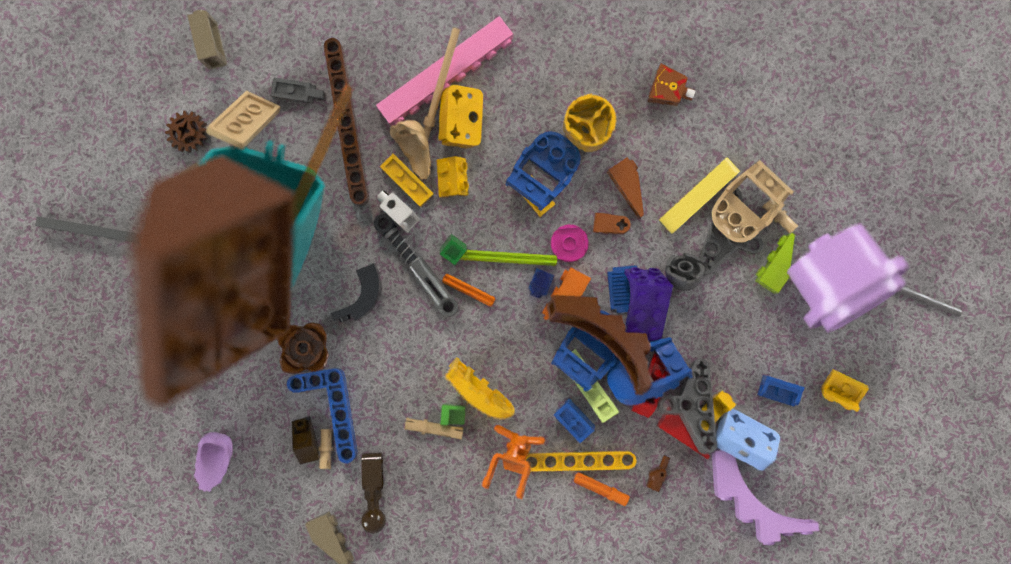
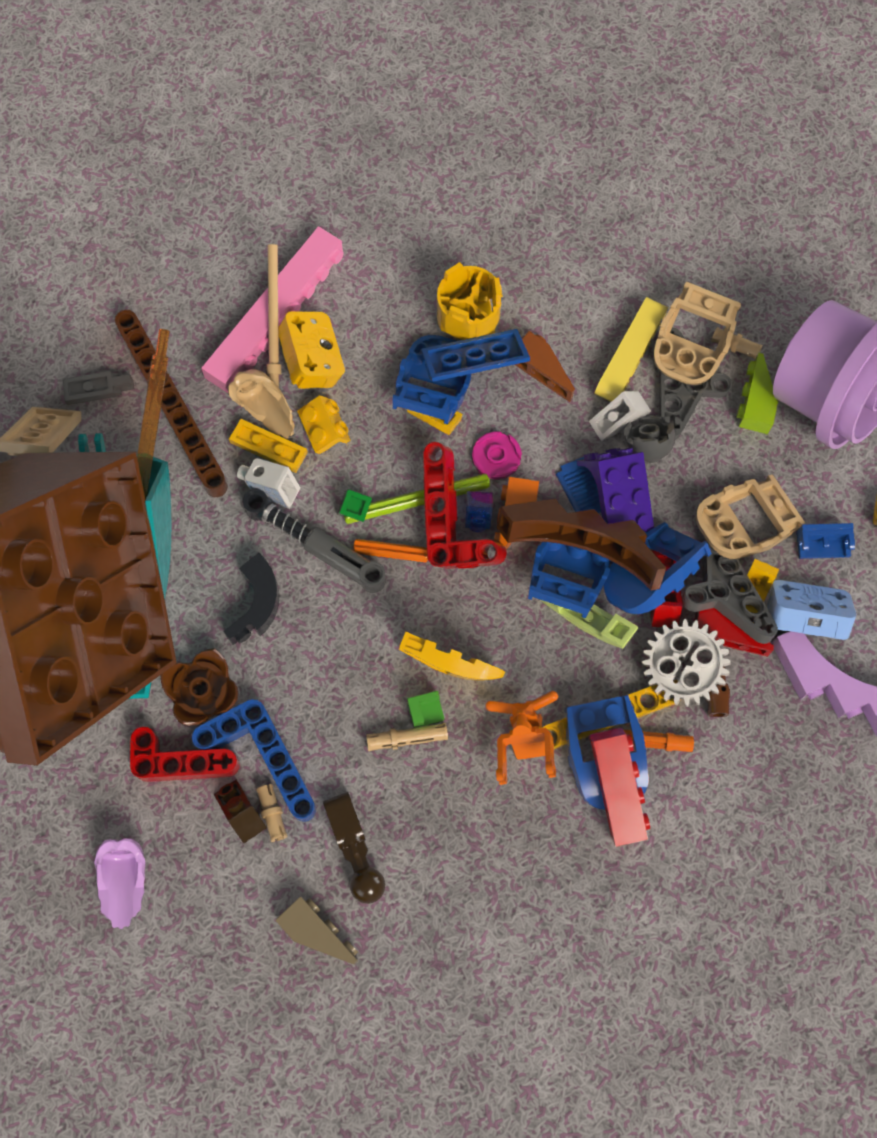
camera: 20 degrees left, 15 degrees down
(278, 393) = (185, 760): none -> red beam
(509, 286) = (442, 524): none -> red beam
(563, 508) = (596, 716): none -> blue slope
(563, 517) = (619, 786): none -> brick
(574, 420) = (585, 663): blue hinge -> none
(579, 166) = (474, 355): none -> blue slope
(607, 223) = (536, 415): dark orange piece -> none
(654, 461) = (708, 674): none -> white gear
(669, 87) = (548, 244): dark orange torso -> none
(670, 244) = (619, 413): none -> white slope
(710, 357) = (725, 531): none -> tan slope

